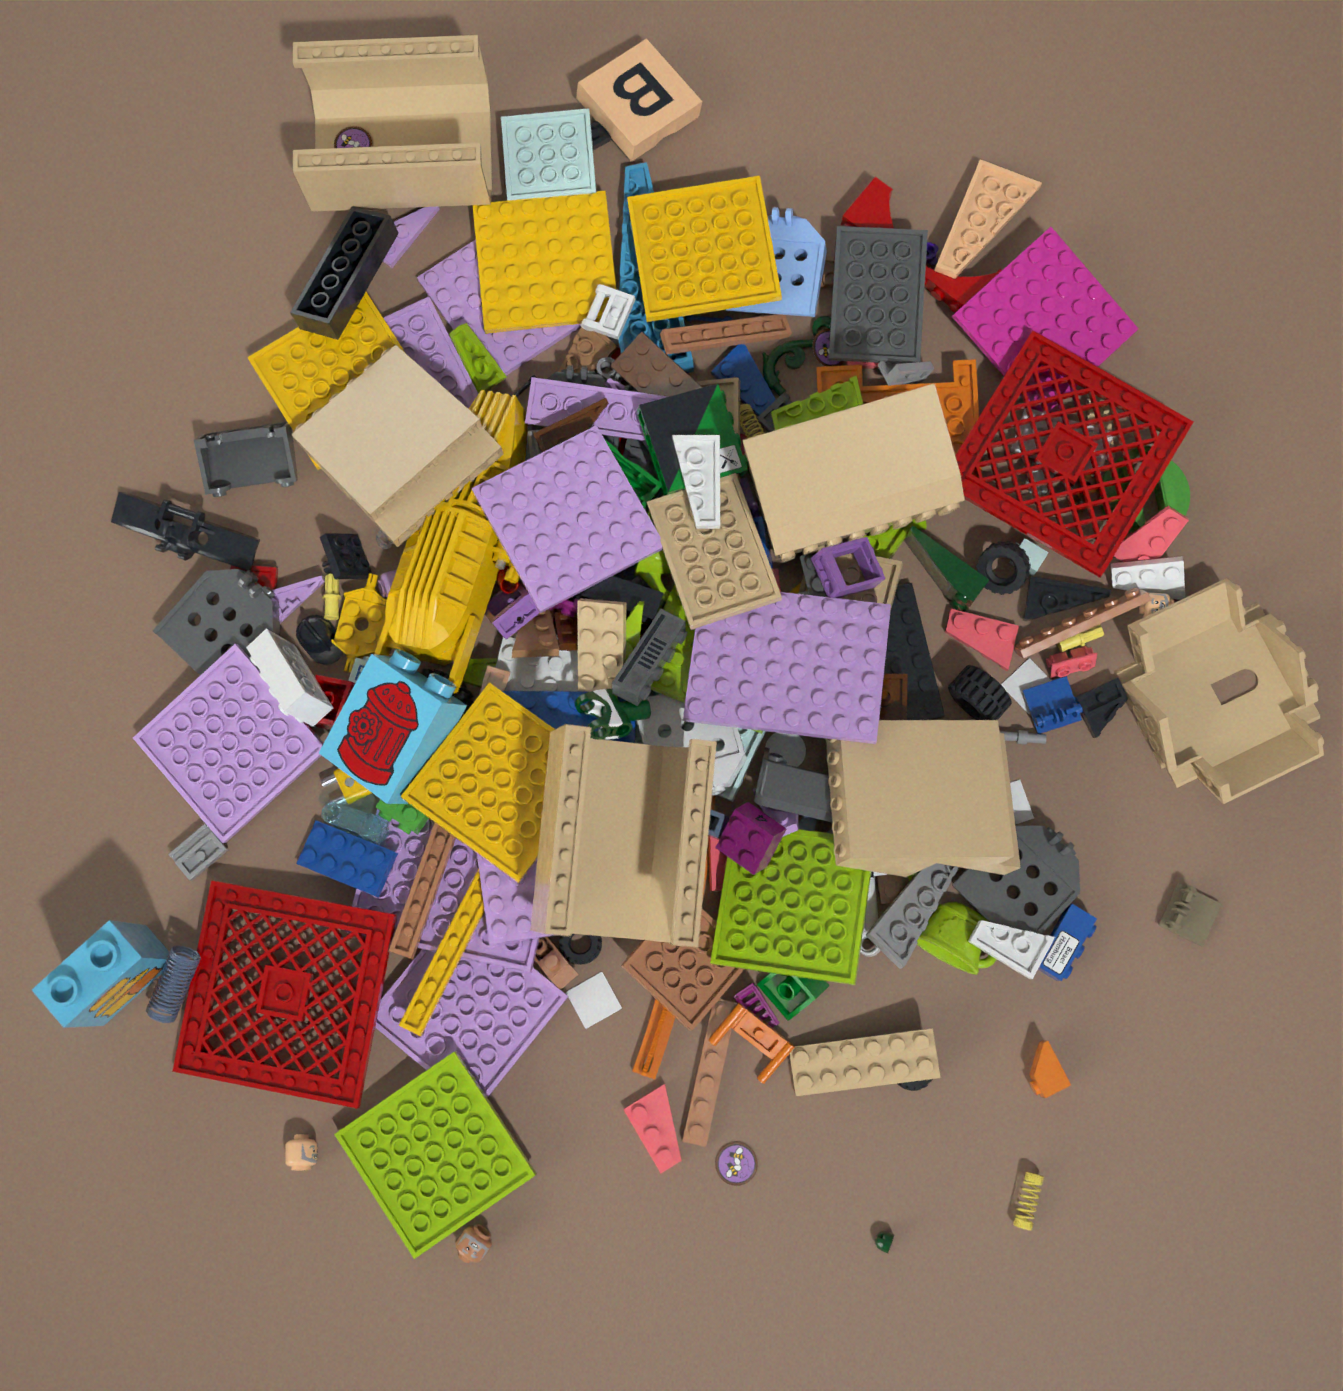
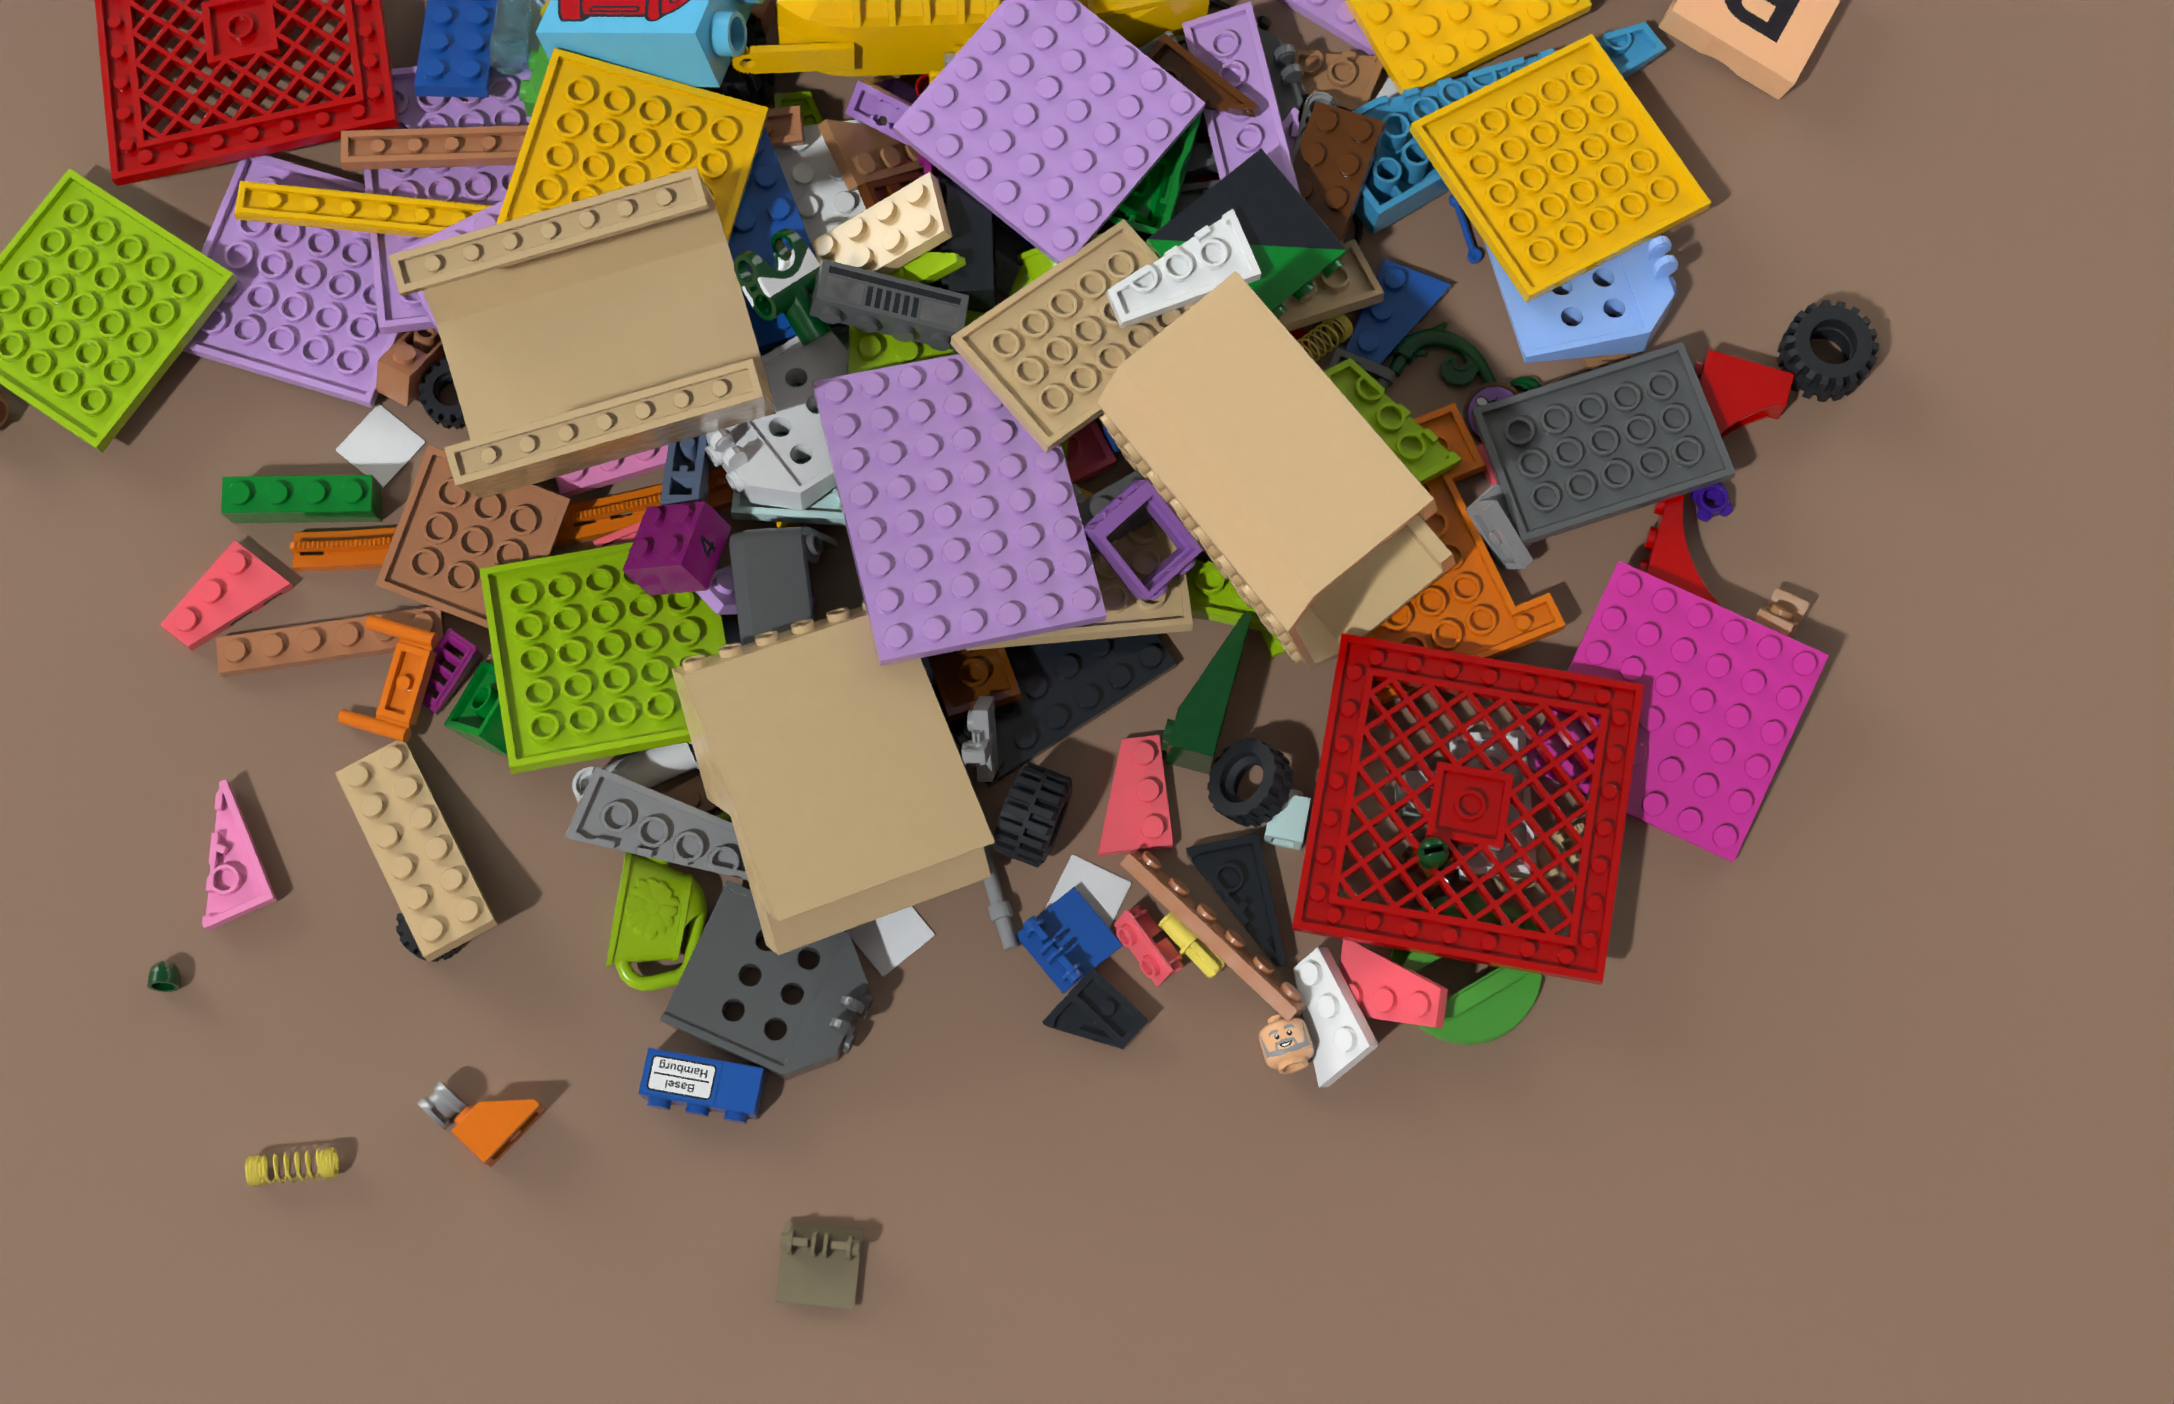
camera: 65 degrees right, 5 degrees down
(301, 1153) = (31, 138): light nougat head -> none
(614, 315) = (1400, 80): white plate -> none
(615, 1059) = (301, 499): none -> green brick
(725, 333) = (1441, 247): nougat plate -> none
(736, 1163) = (211, 728): sticker -> none
(789, 746) = (838, 578): white sticker -> none
(836, 1176) = (236, 874): none -> bright pink wing
(866, 137) = (1843, 329): none -> black tyre
(934, 709) = (982, 749): none -> light grey hinge
(986, 208) = (1829, 560): light nougat wing -> none
(1009, 243) = (1783, 612): none -> medium nougat bracket
(1013, 947) = (661, 996): white wing -> none
(1023, 1099) = (445, 1102): none -> light grey wheel
(1083, 482) = (1433, 860): none -> dark green hinge
(1171, 693) = (1138, 1138): tan panel -> none

